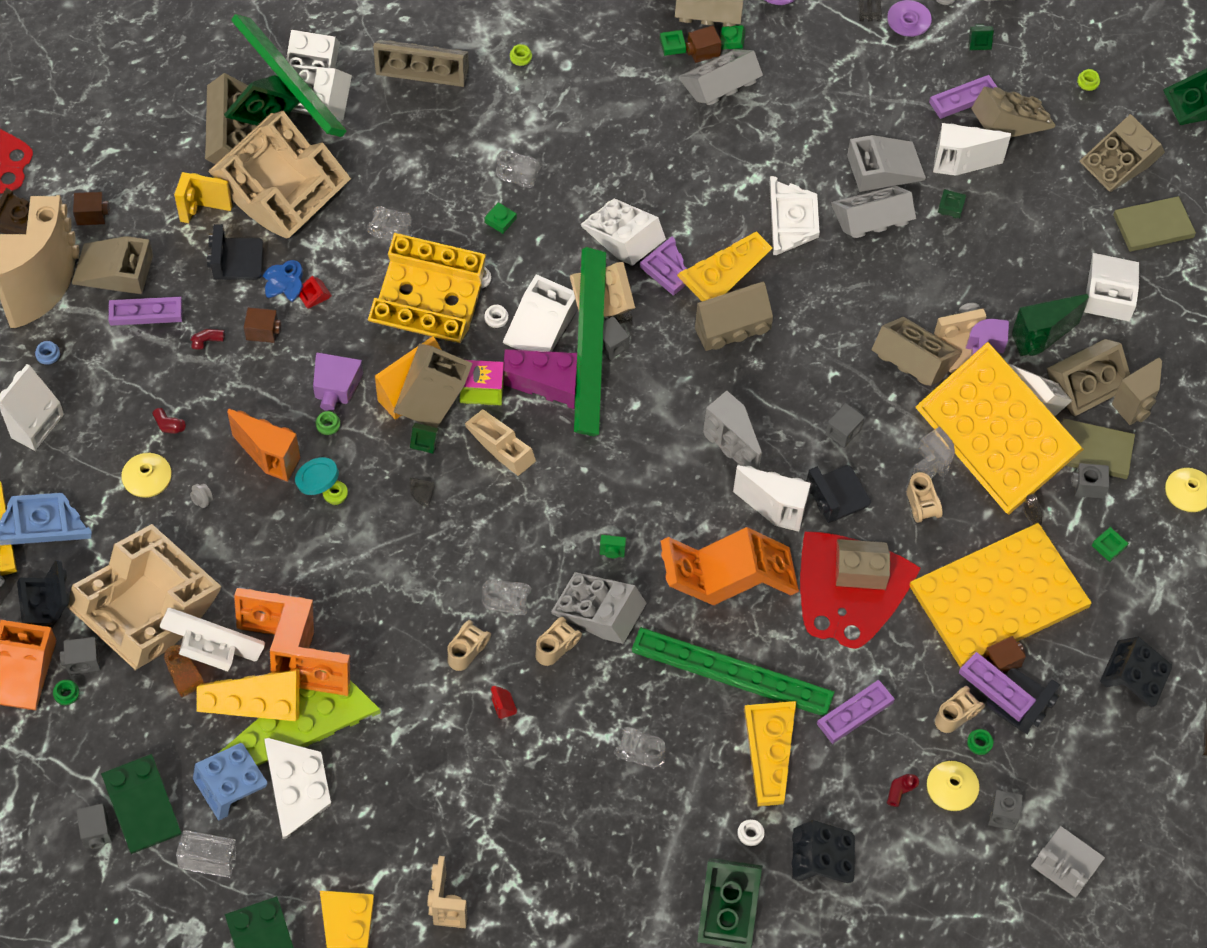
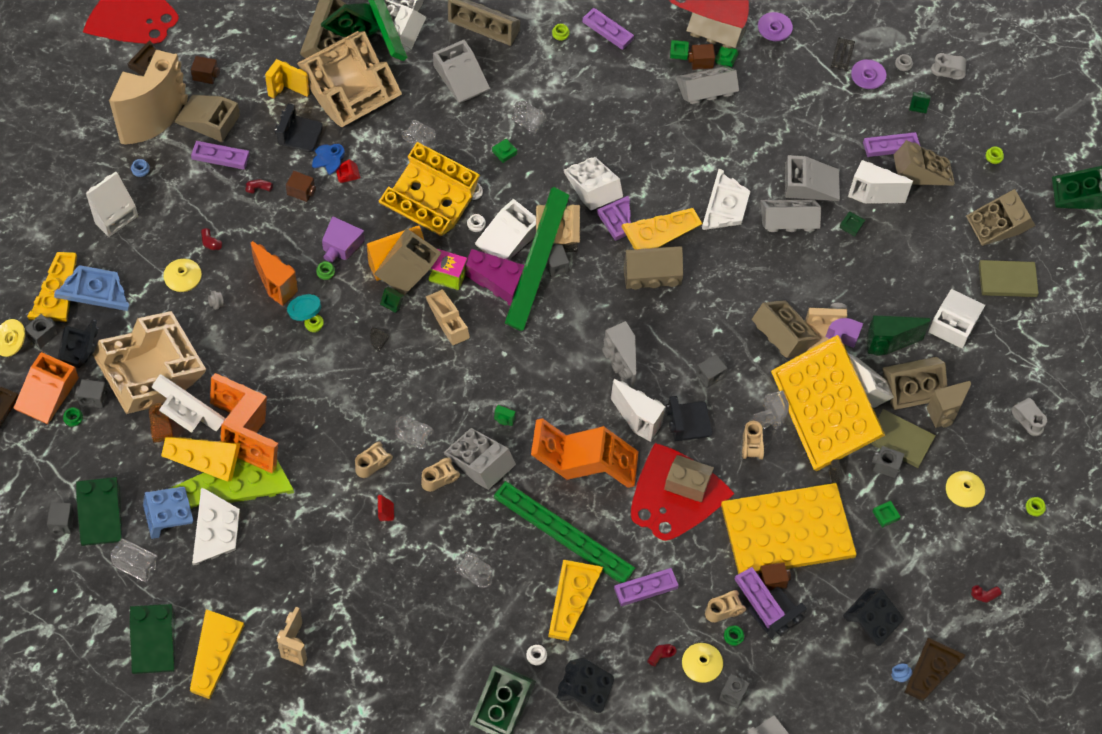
camera: 15 degrees right, 0 degrees up
(414, 132) = (460, 71): none -> light grey slope
(577, 37) = (608, 28): none -> medium lavender plate
(1193, 731) = (901, 672): none -> medium blue plate

